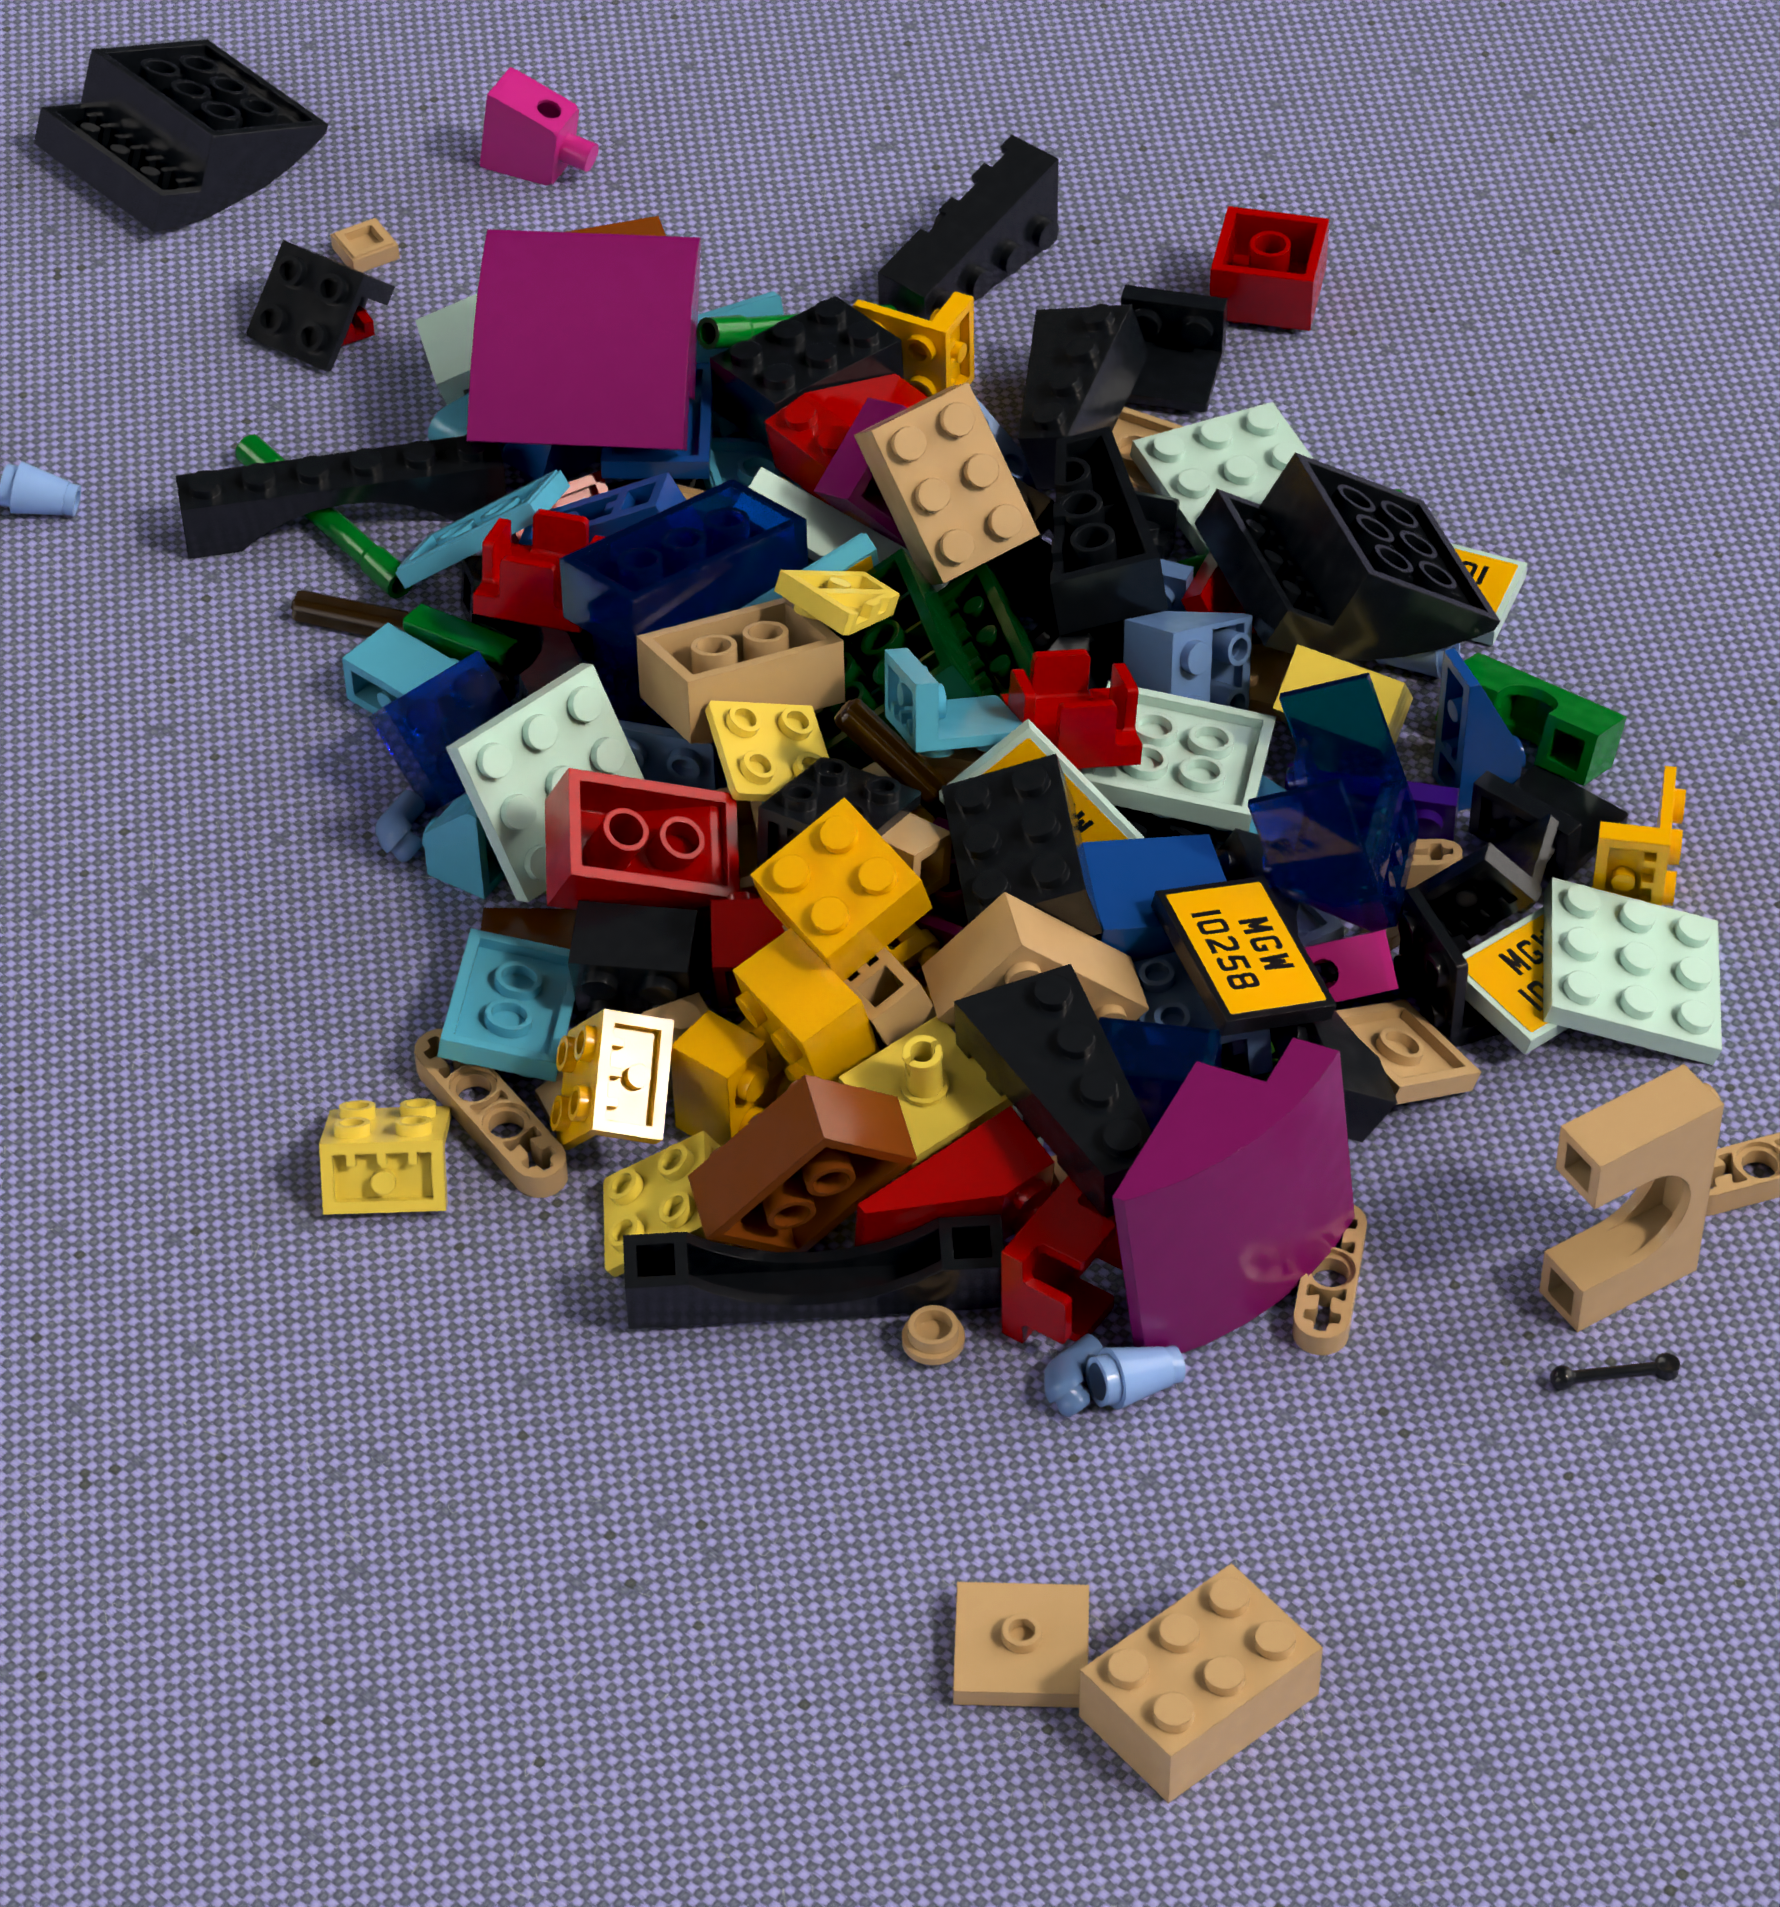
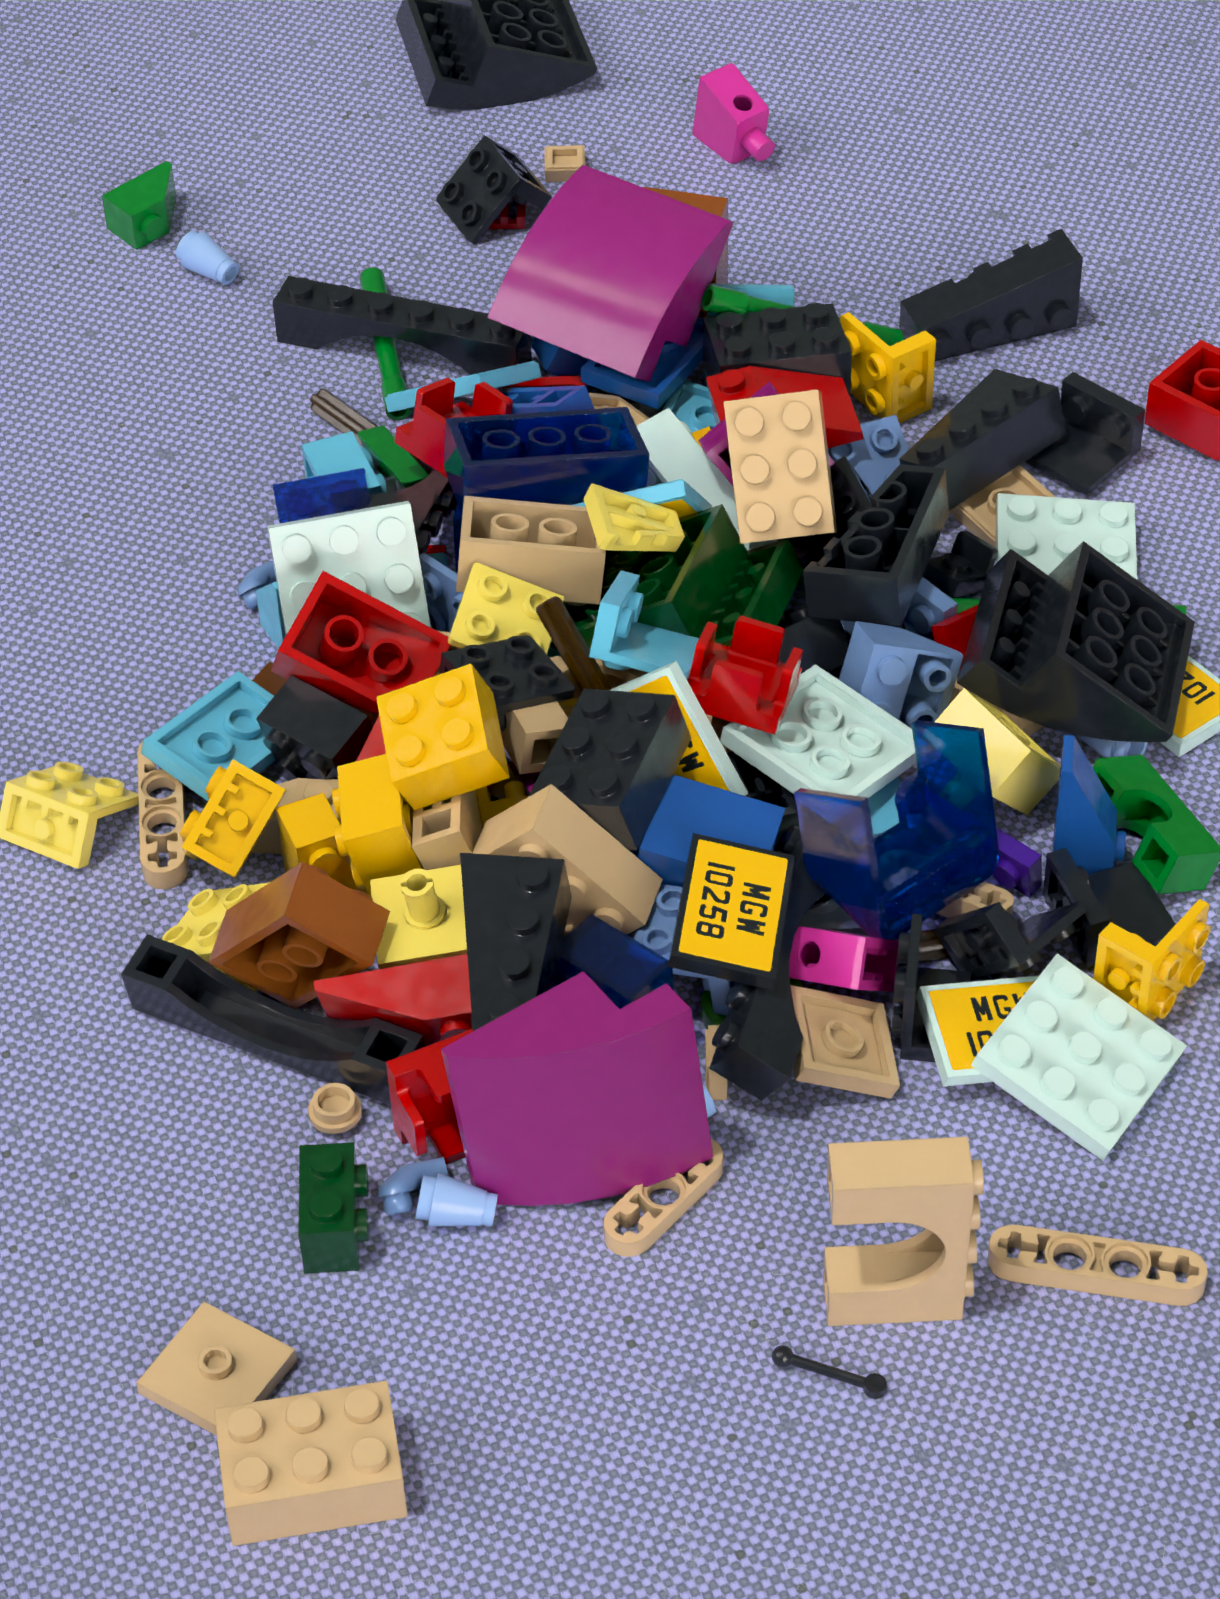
camera: 30 degrees right, 0 degrees up
(1018, 1431) = (329, 1207): none -> dark green brick

